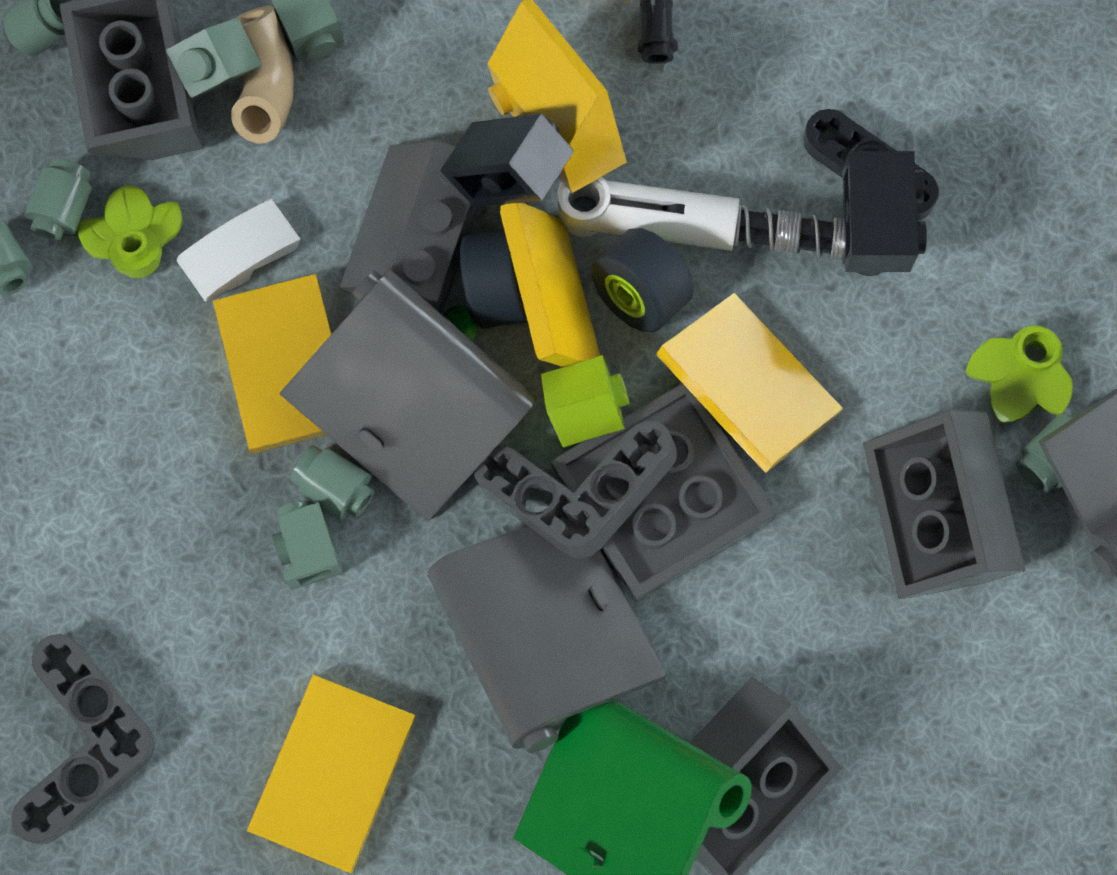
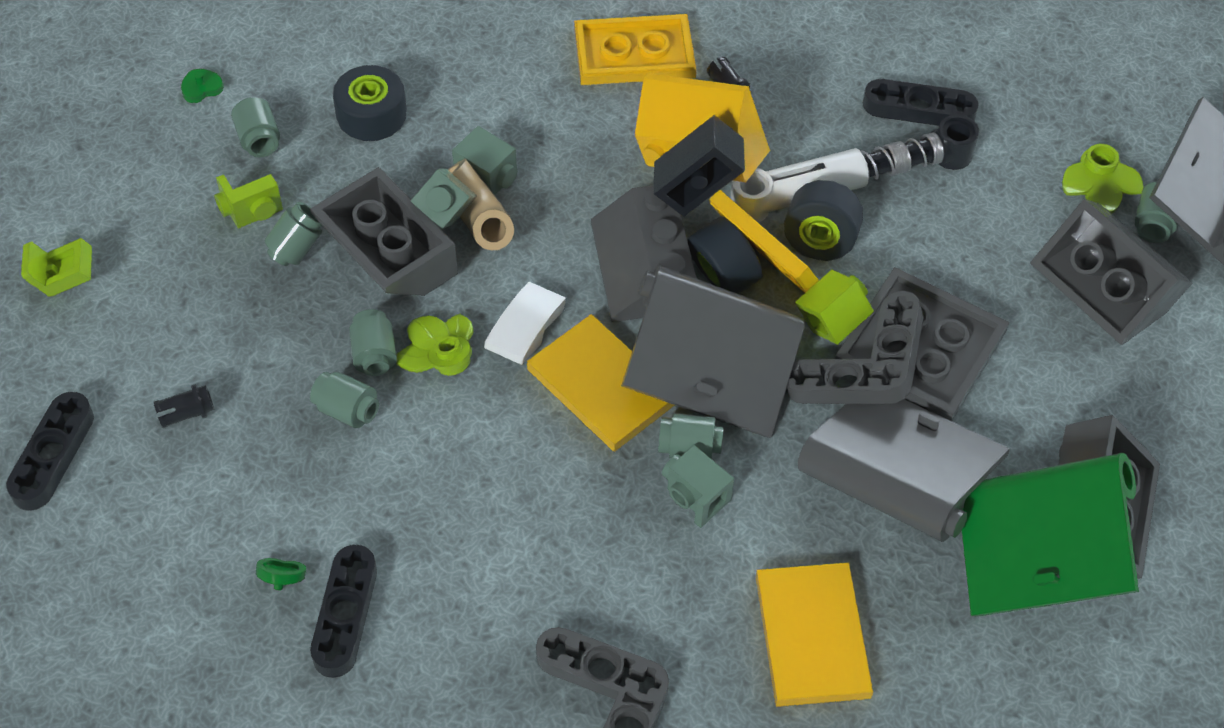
camera: 30 degrees left, 20 degrees down
(749, 382) = (934, 253): yellow tile -> none
(882, 211) = (957, 108): black brick -> none

